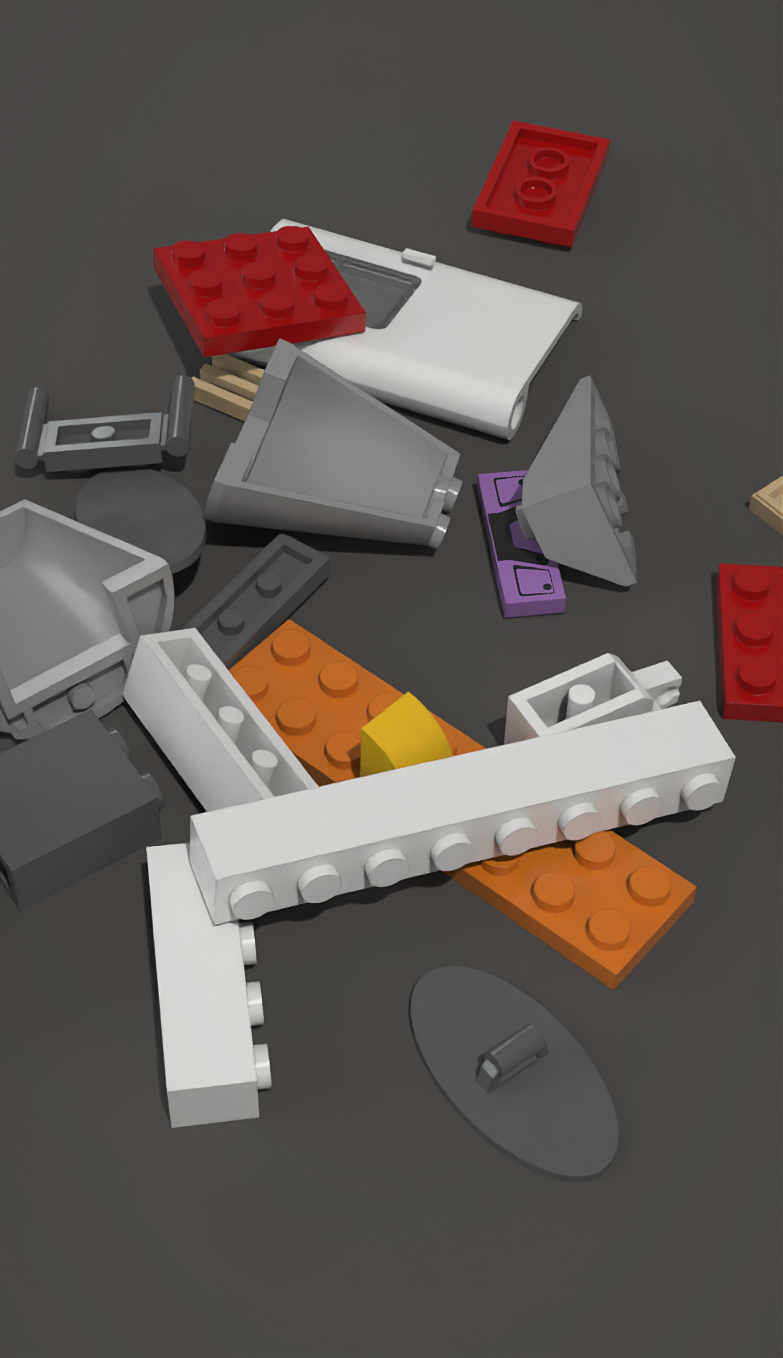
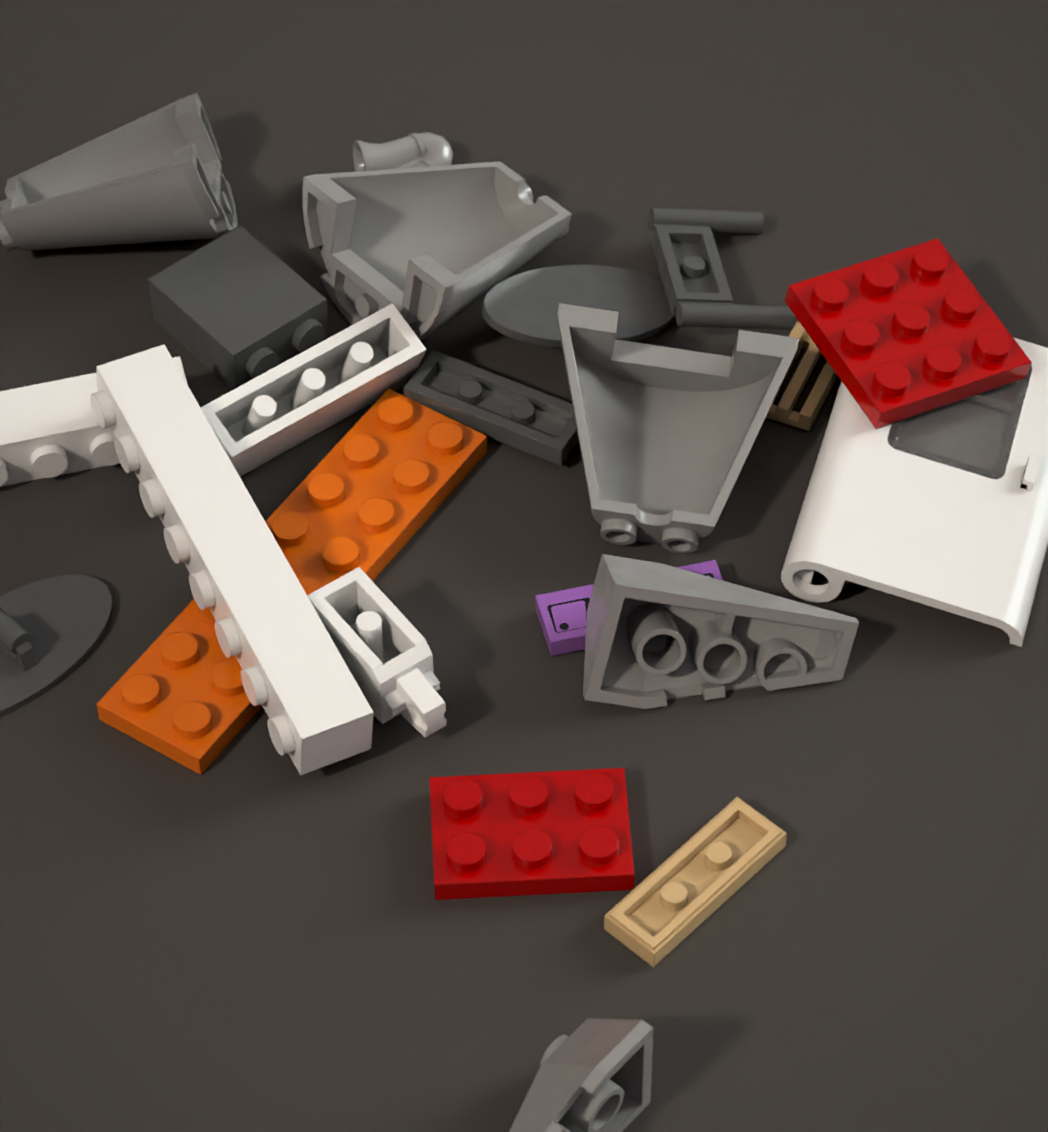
camera: 85 degrees right, 0 degrees up
(401, 738) = (296, 506): yellow brick -> none

